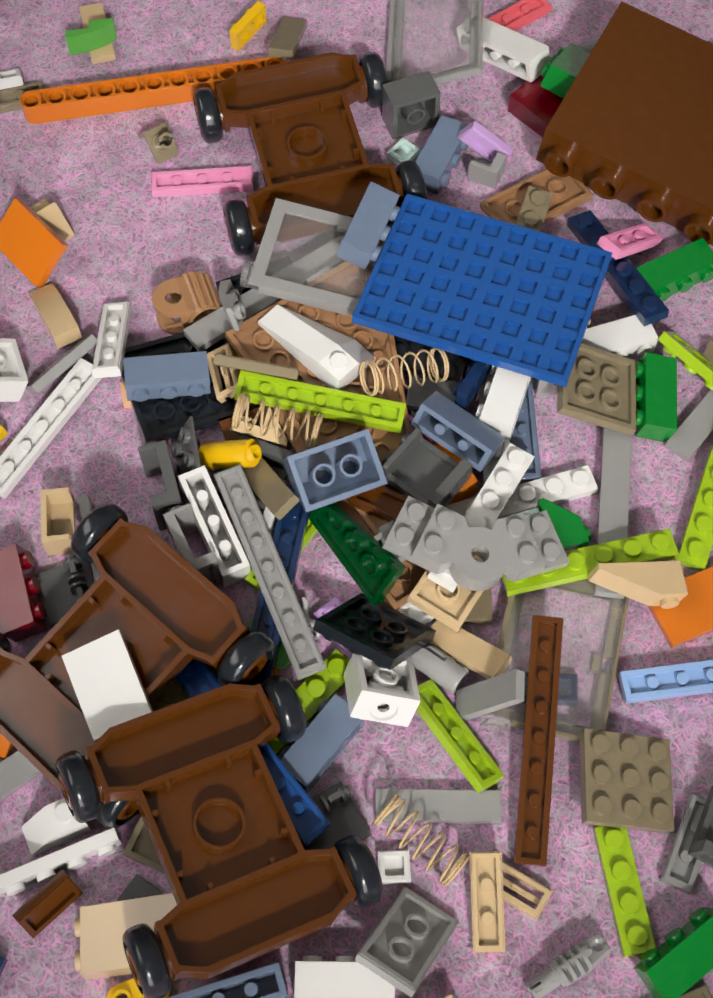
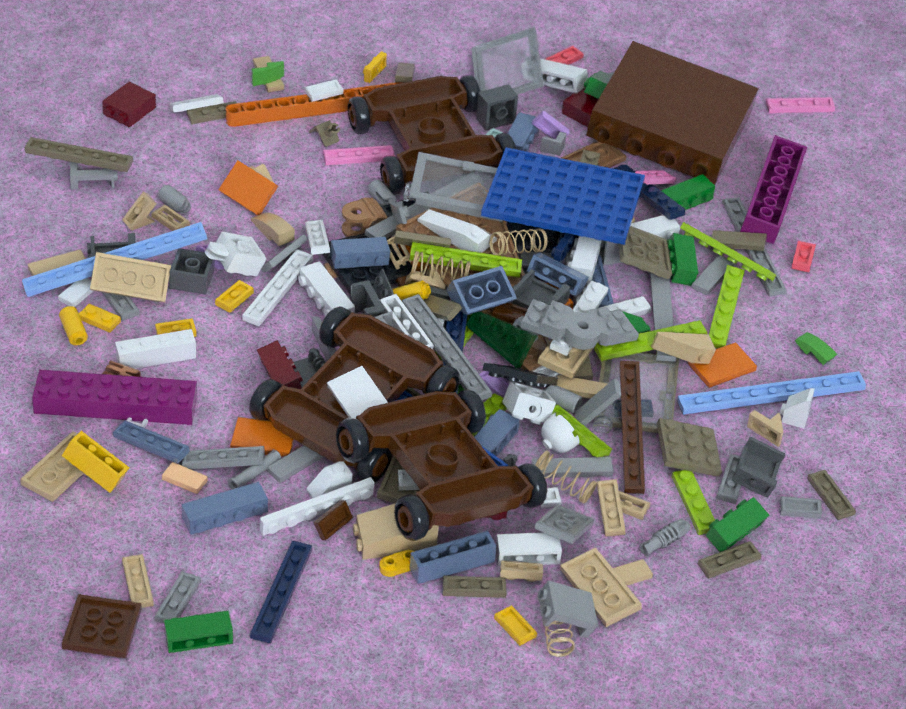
camera: 10 degrees left, 20 degrees down
(57, 520) = (298, 333): tan panel -> none
(112, 444) = (323, 288): none -> white brick
(164, 70) = (324, 90): none -> white tile
(221, 256) = (380, 192): none -> light grey arm
(369, 226) = (484, 164): sand blue brick -> none
(420, 750) = (558, 434): none -> white cylinder

